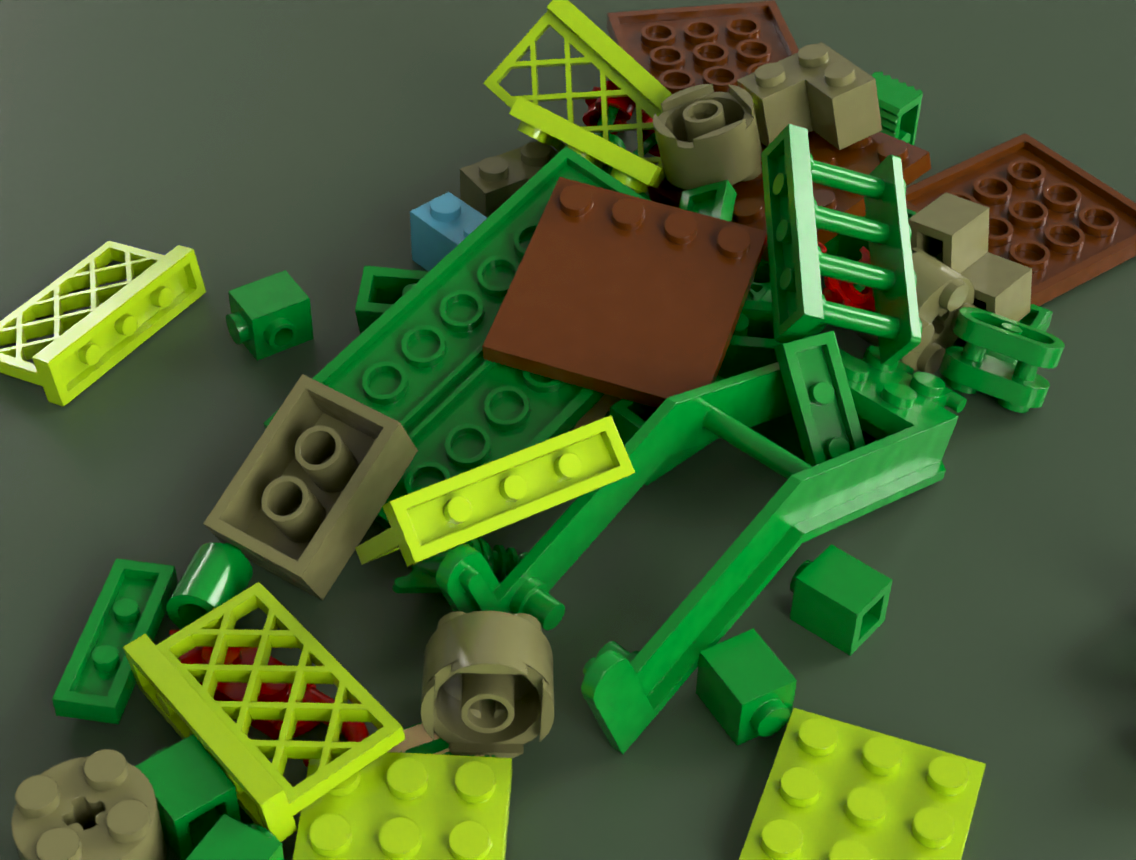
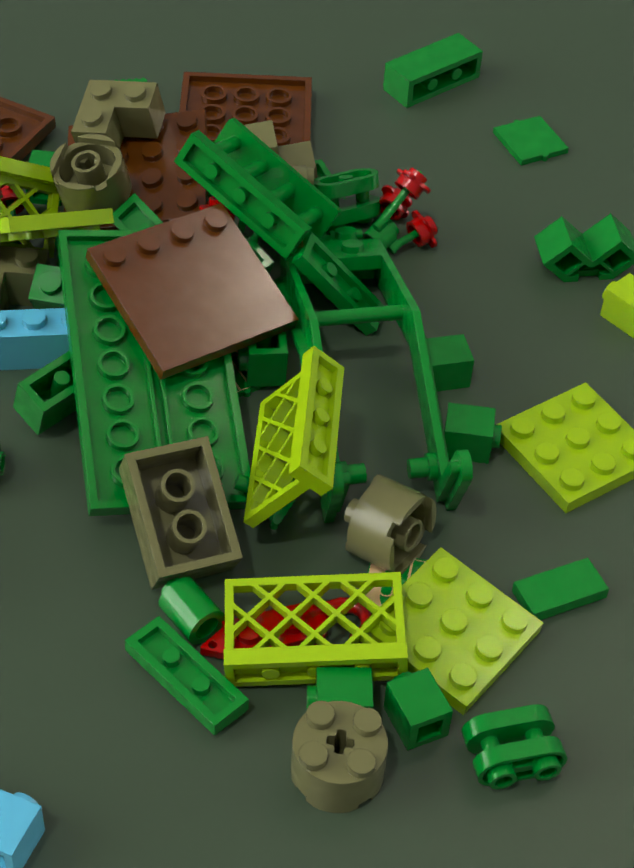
camera: 55 degrees left, 5 degrees up
(1060, 402) = (395, 206): none -> red plant

